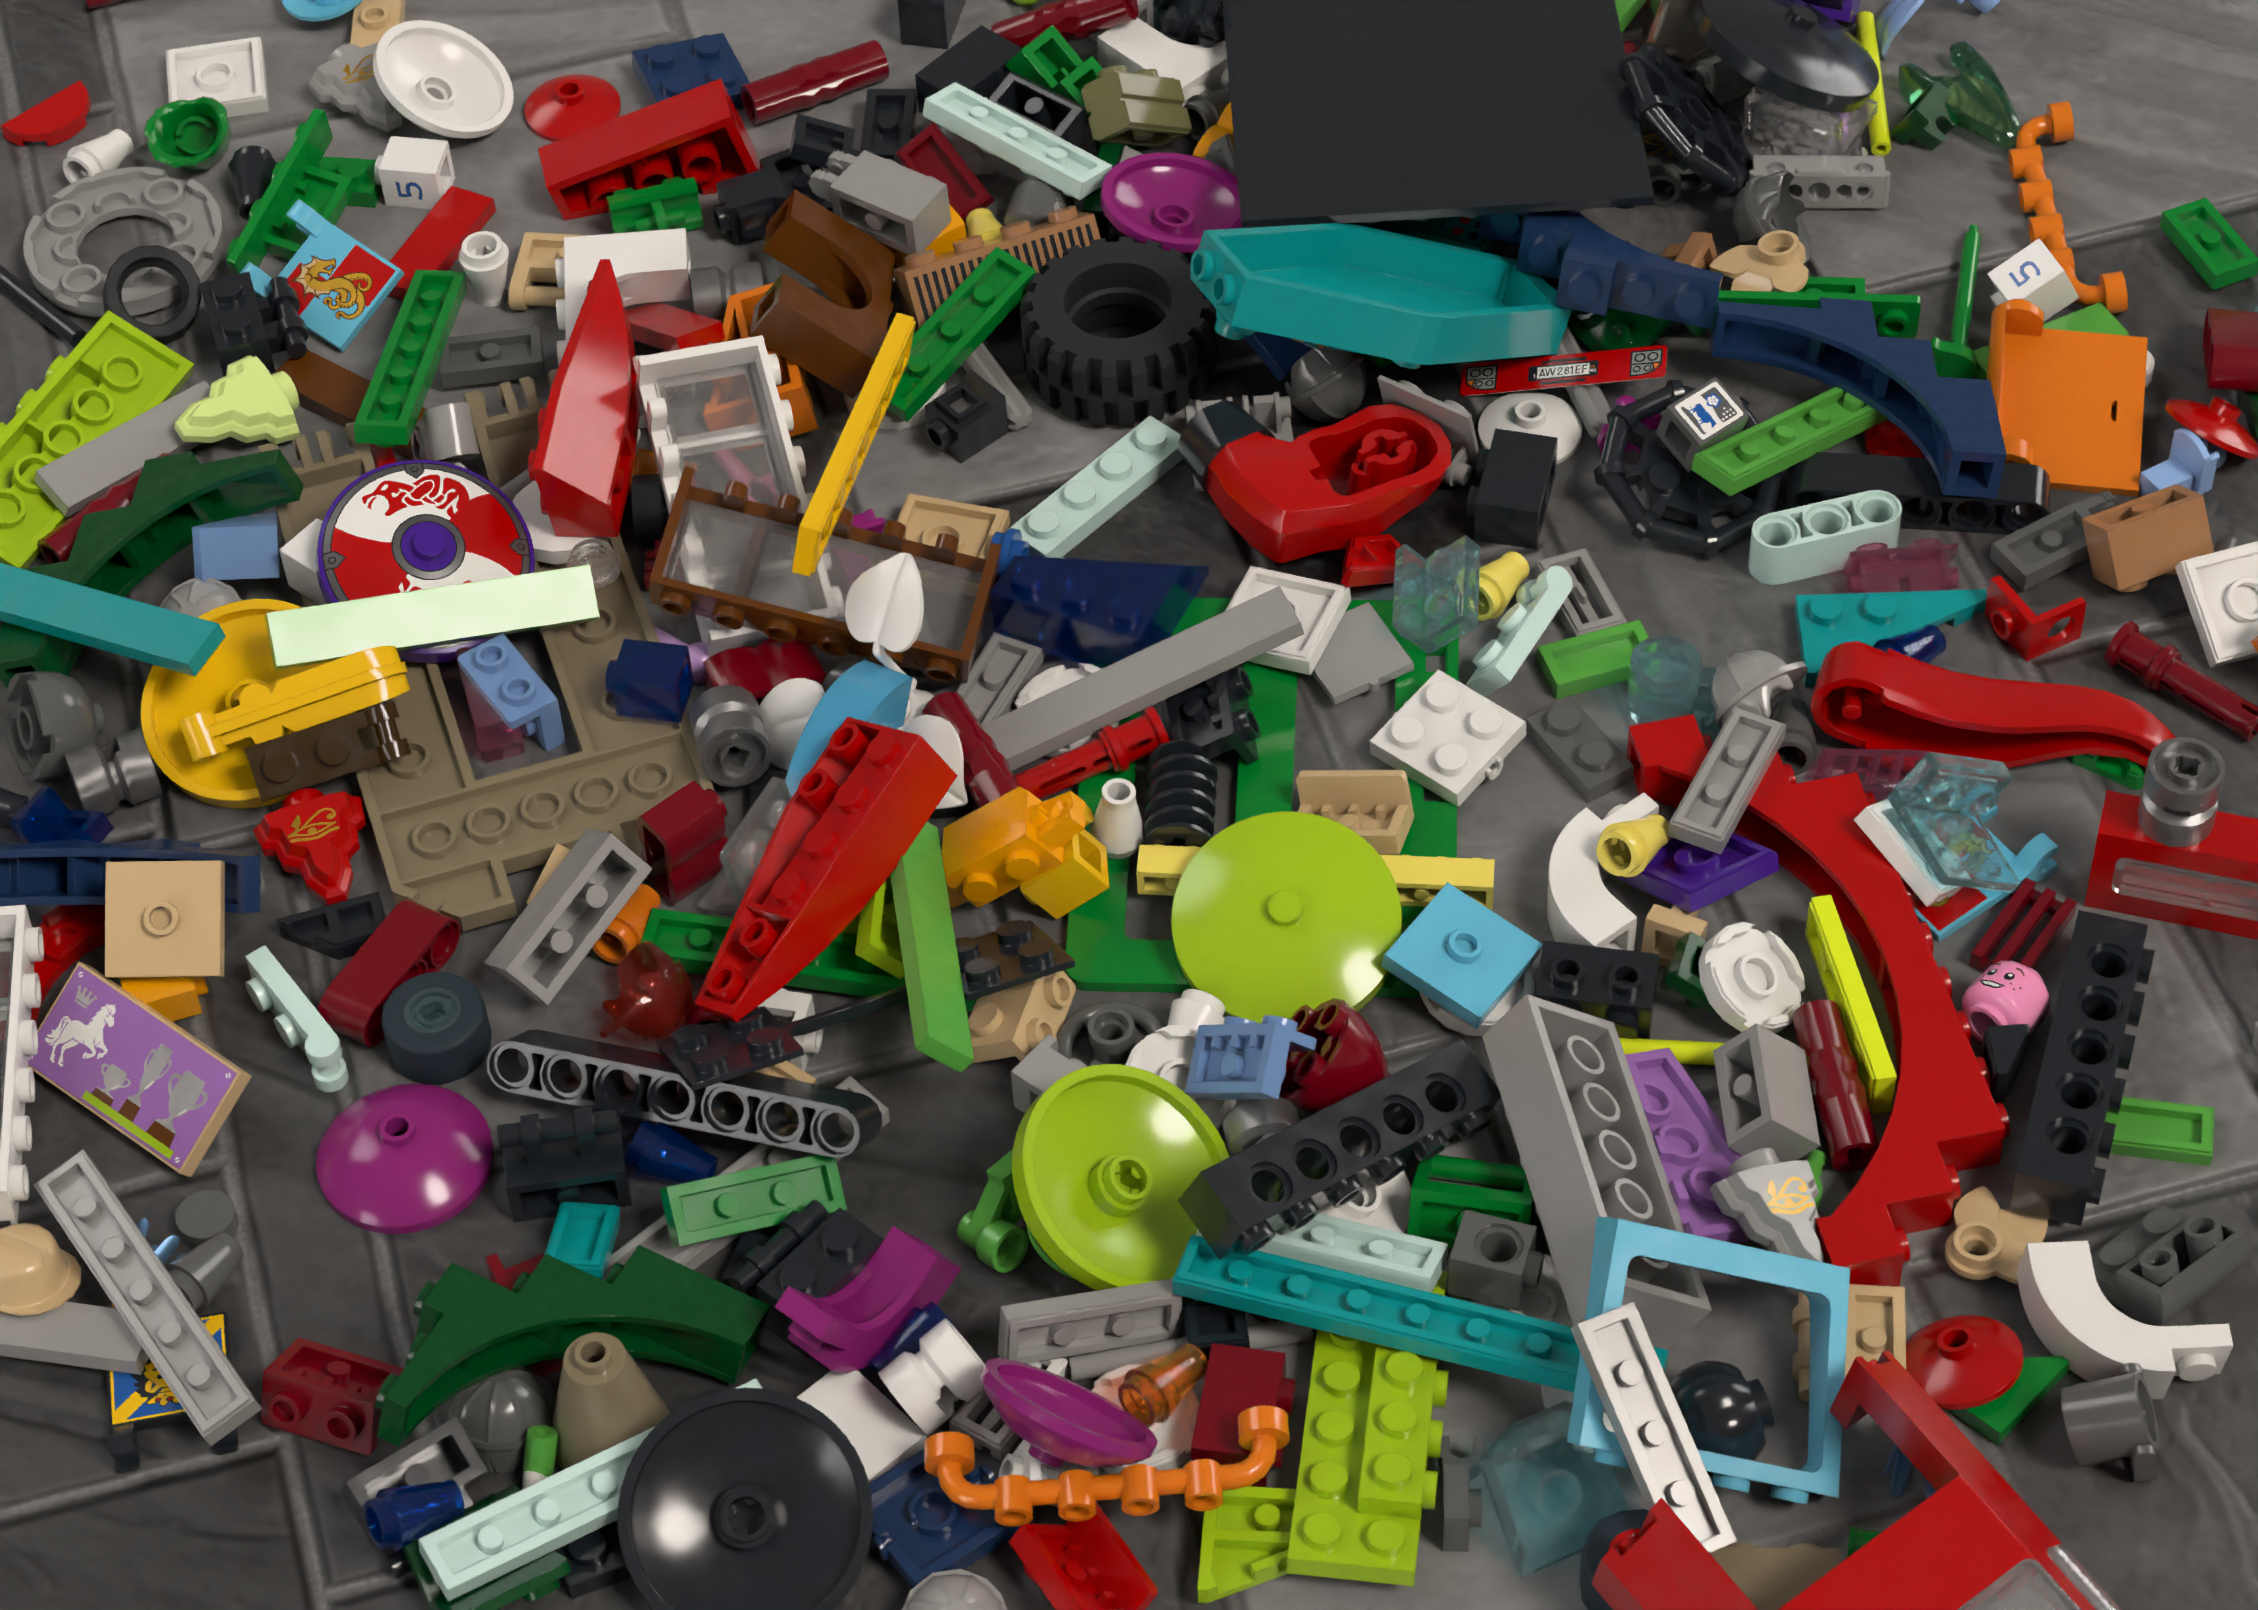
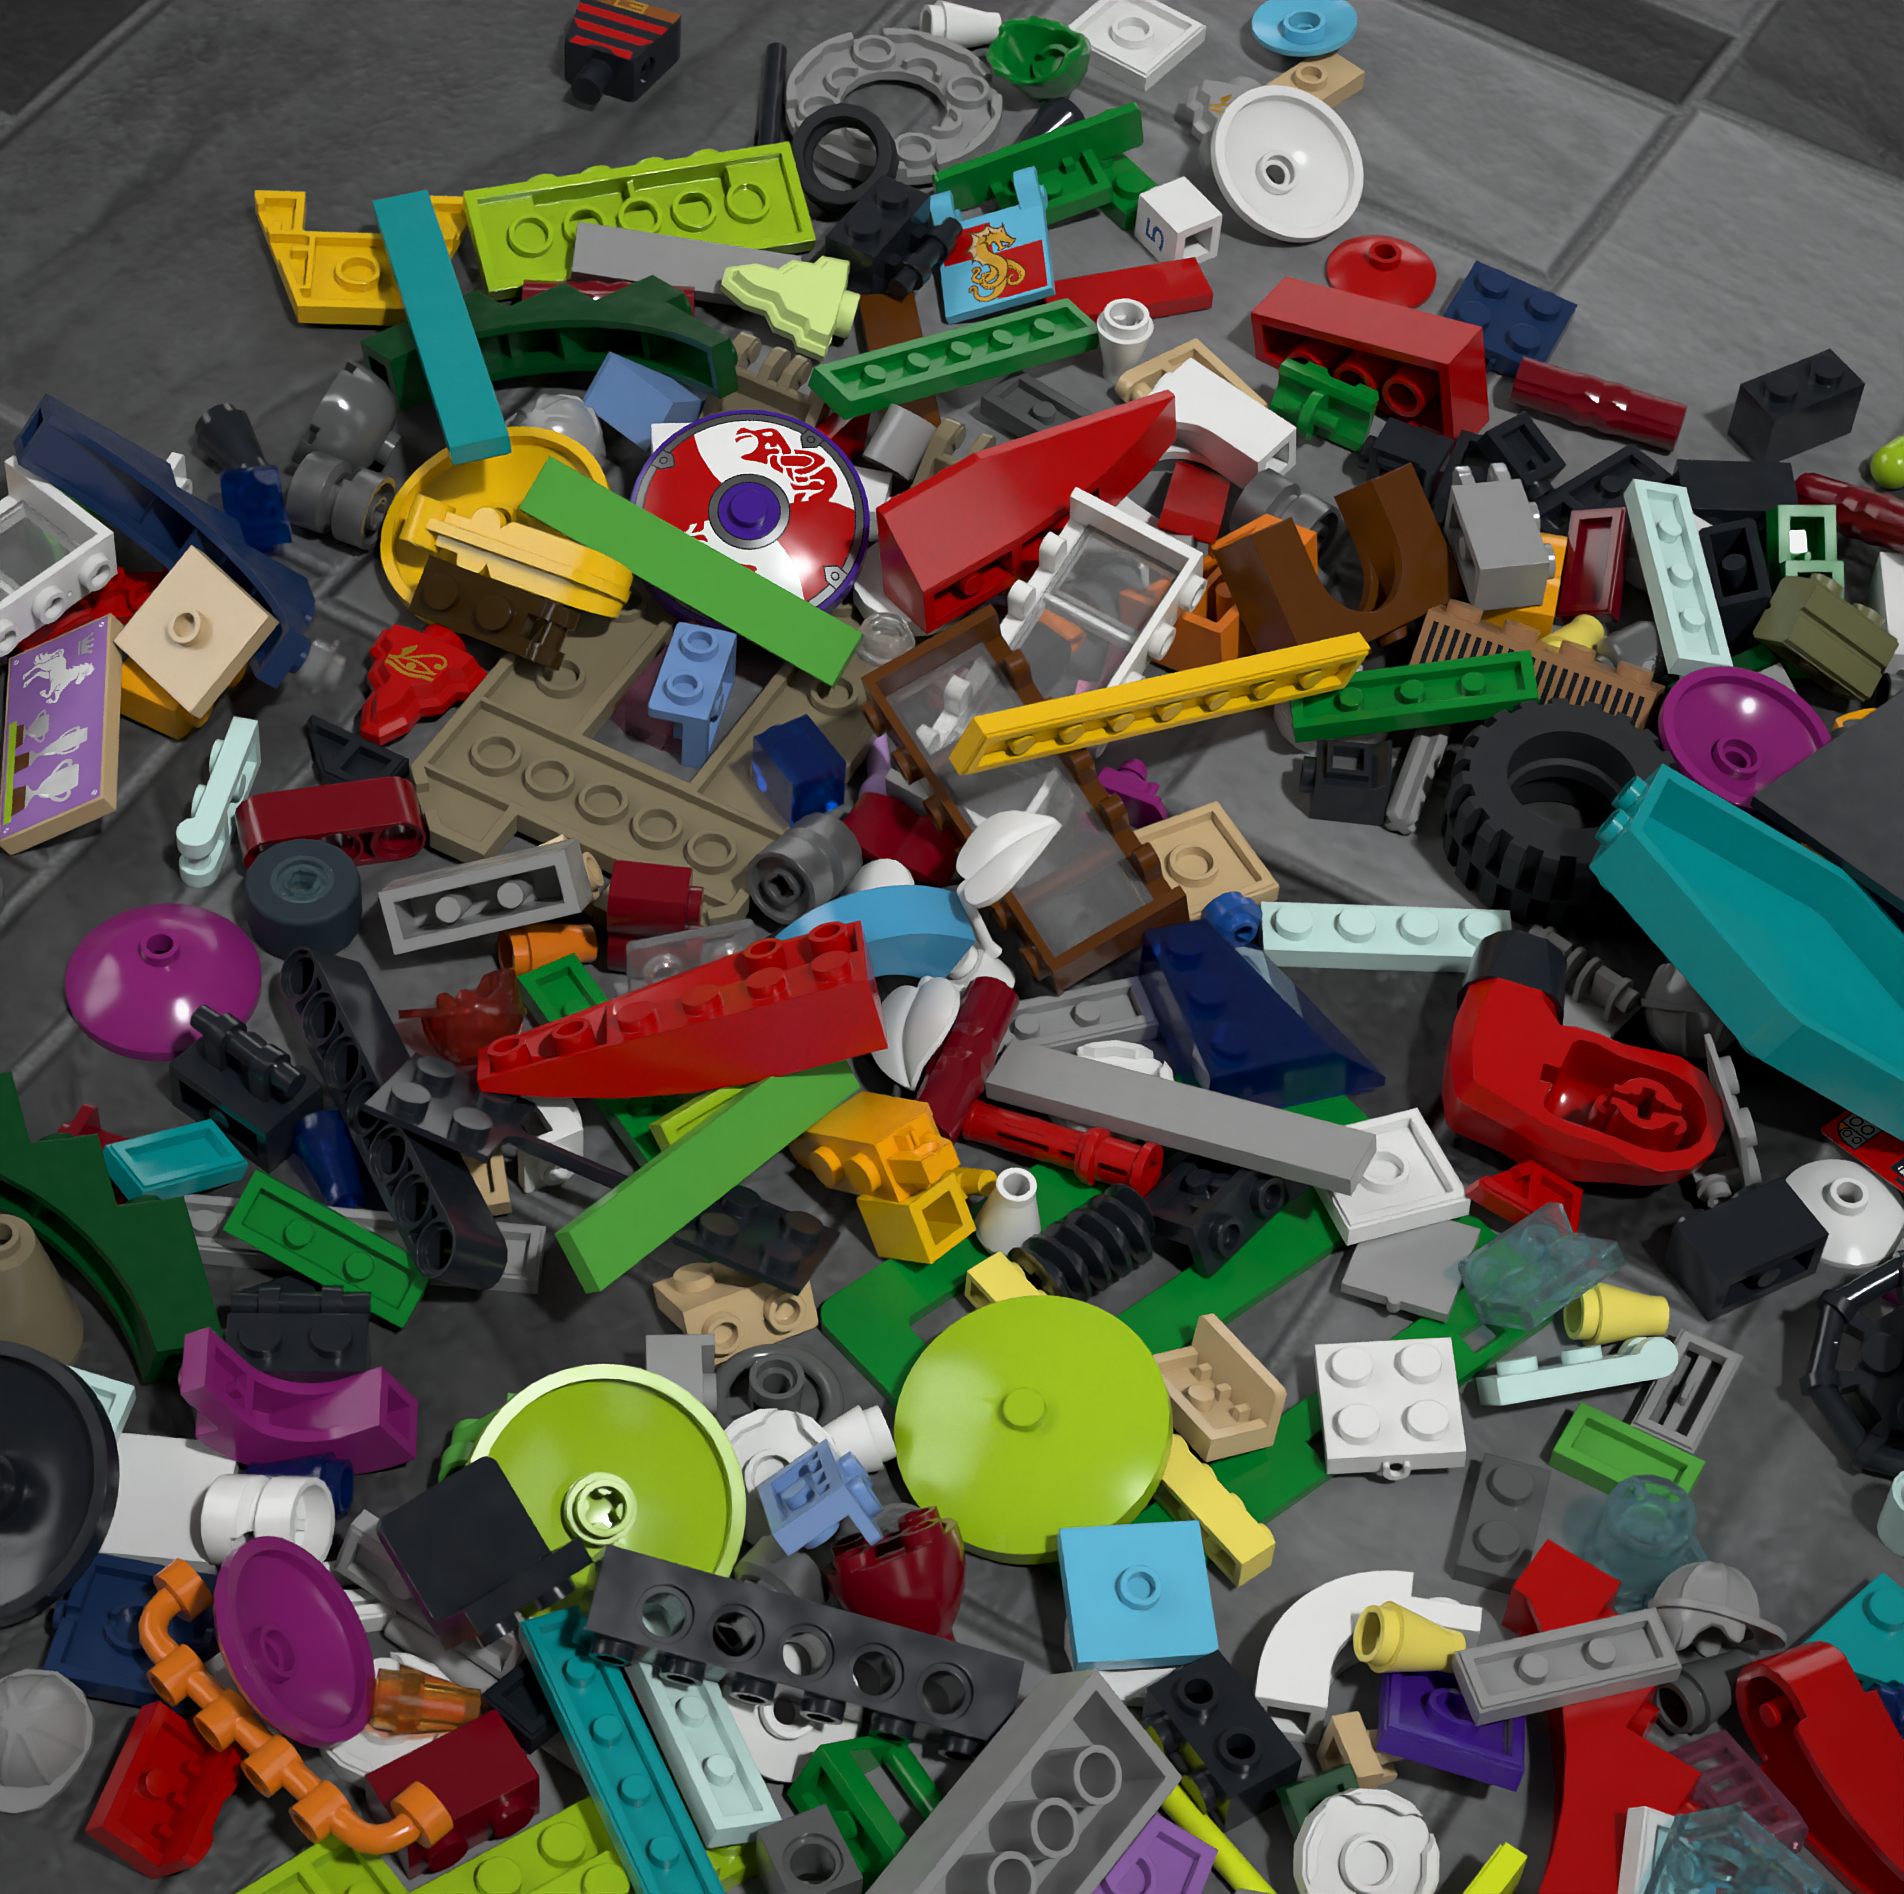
camera: 40 degrees right, 0 degrees up
(1116, 1267) = (476, 1555): none -> black bracket

